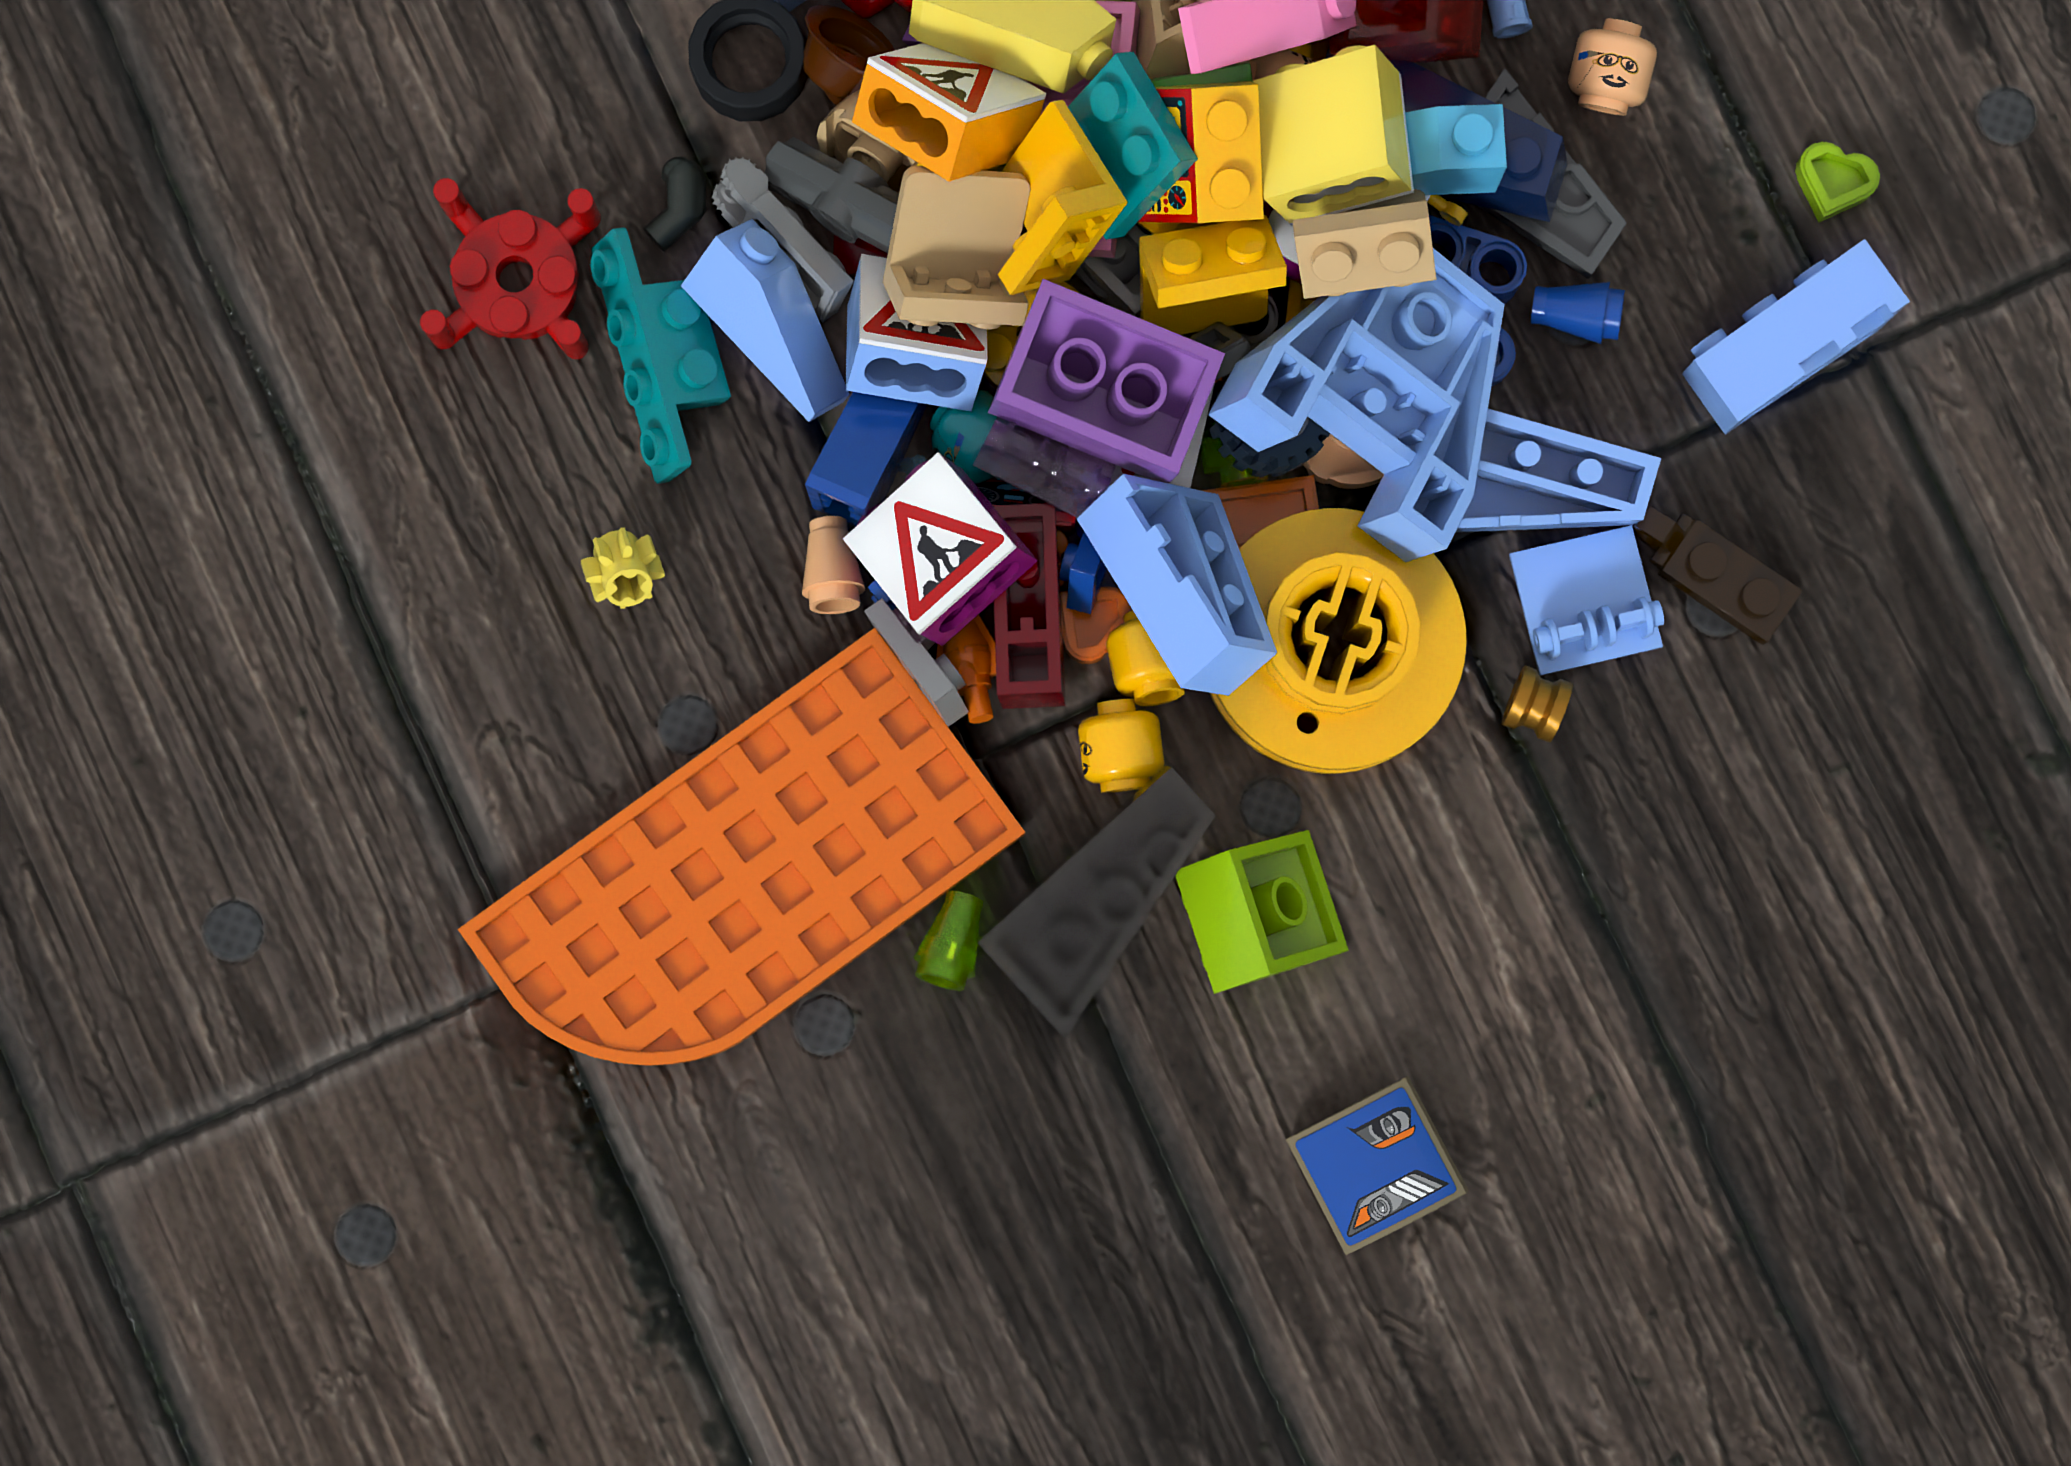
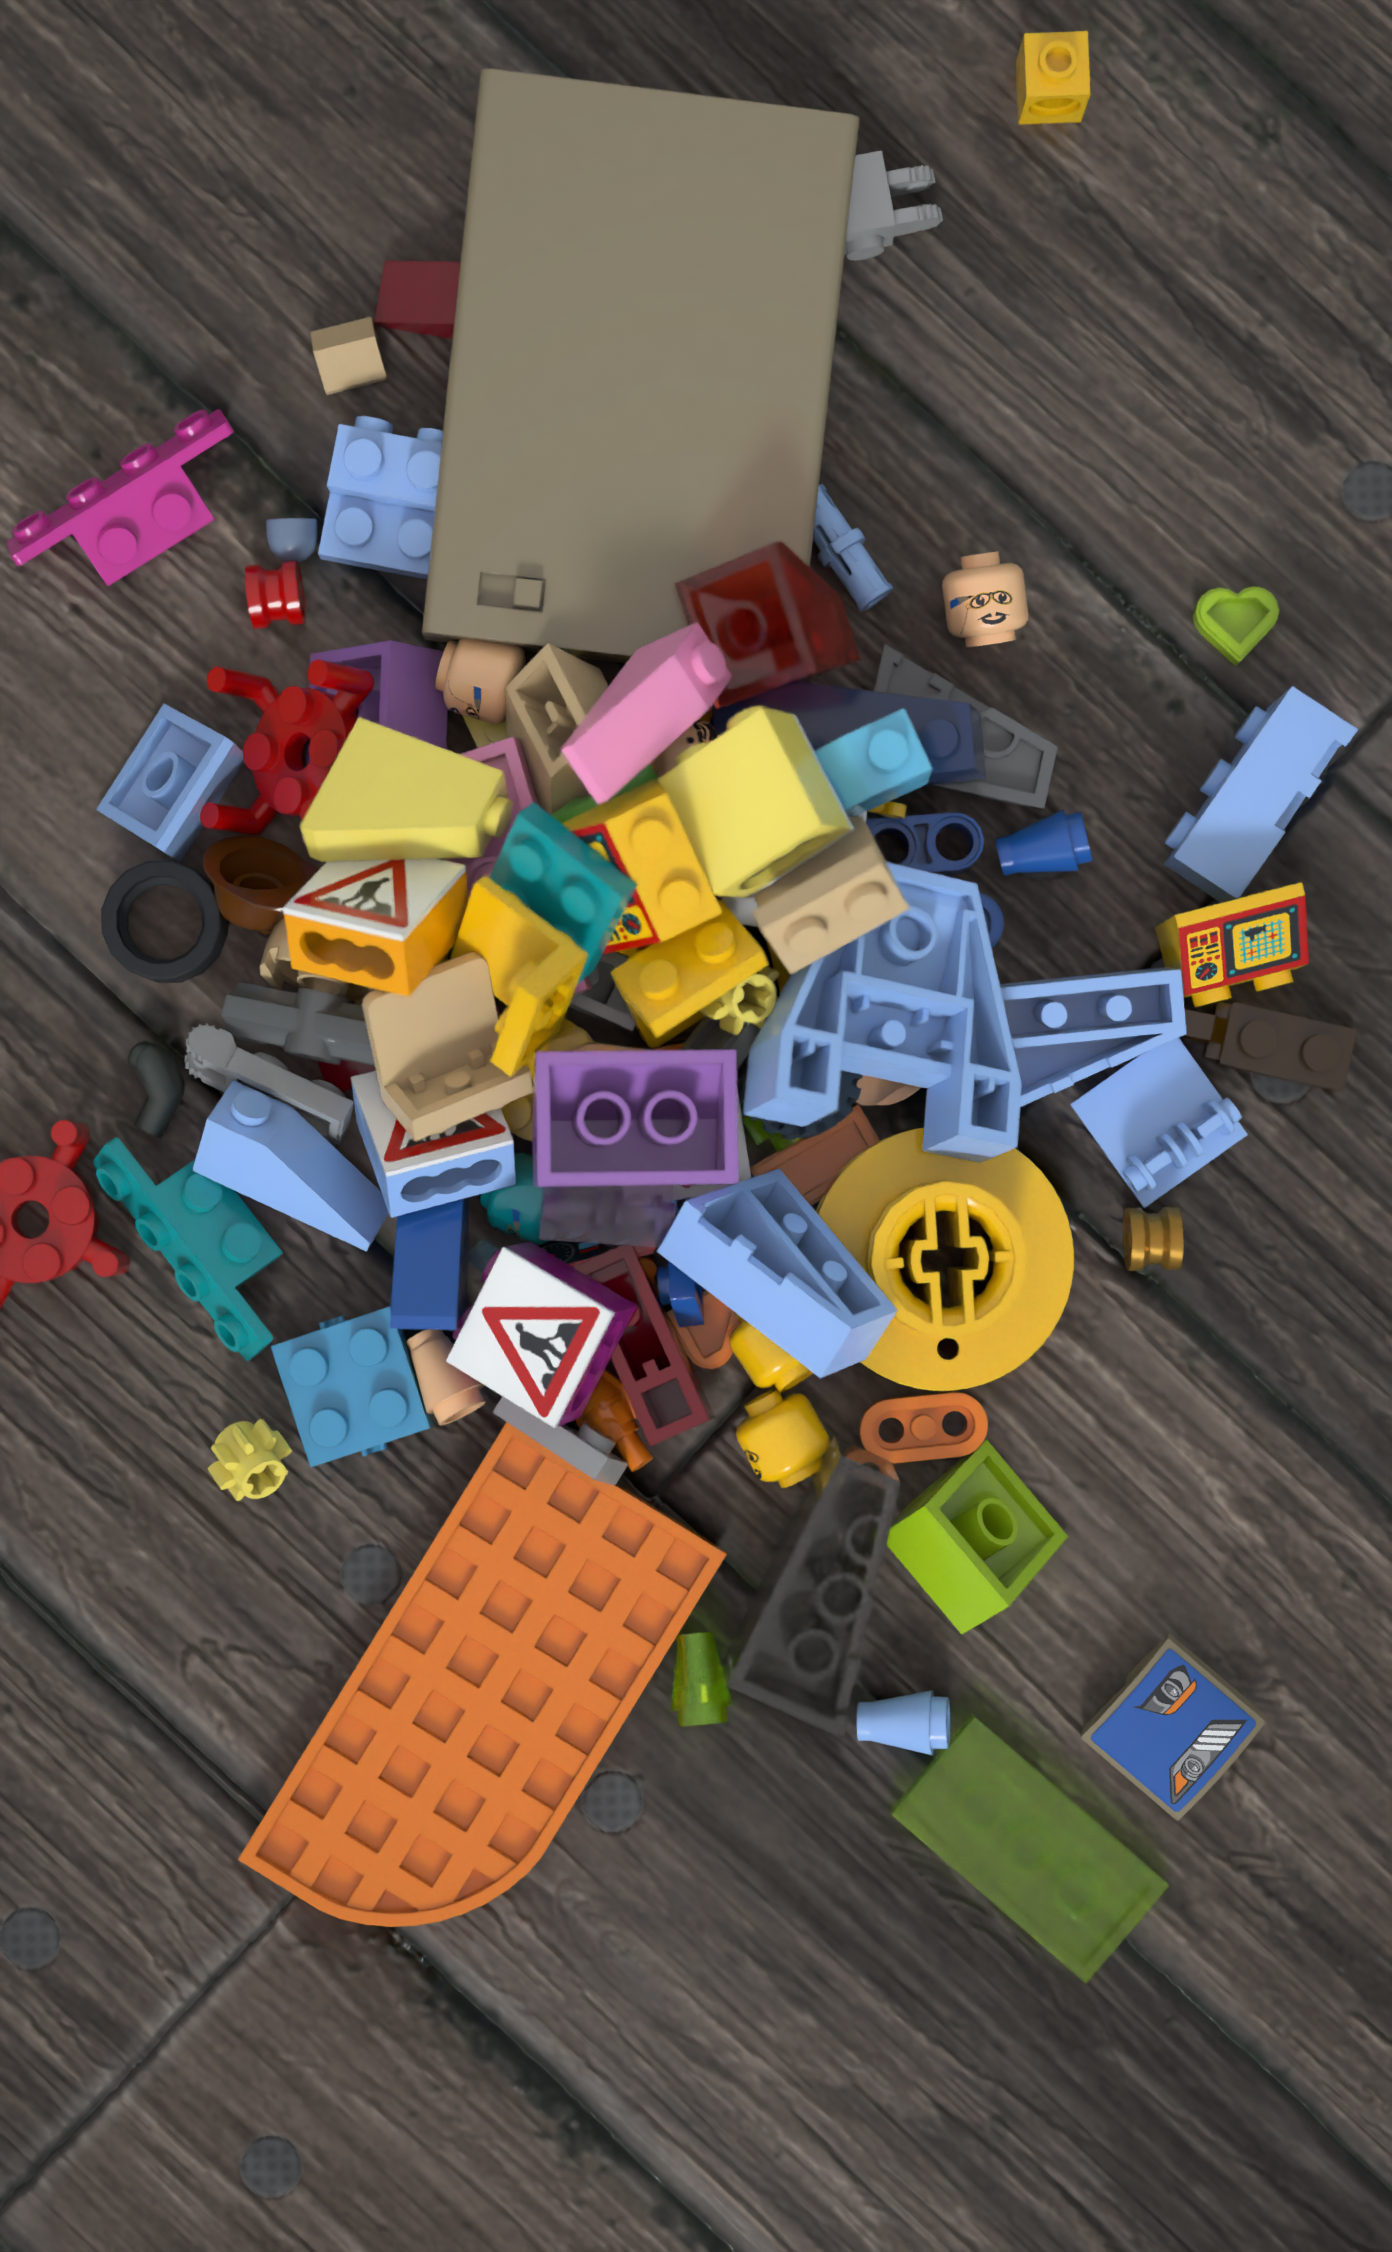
camera: 20 degrees left, 5 degrees up
(743, 543) = (351, 1387): none -> dark azure plate
(1130, 1058) = (907, 1722): none -> light blue cone
(1196, 1226) = (1029, 1848): none -> clear neon green tile
(1254, 790) = (922, 1427): none -> orange plate
(1259, 319) = (747, 1002): none -> light yellow gear
(1723, 460) = (1237, 943): none -> slope

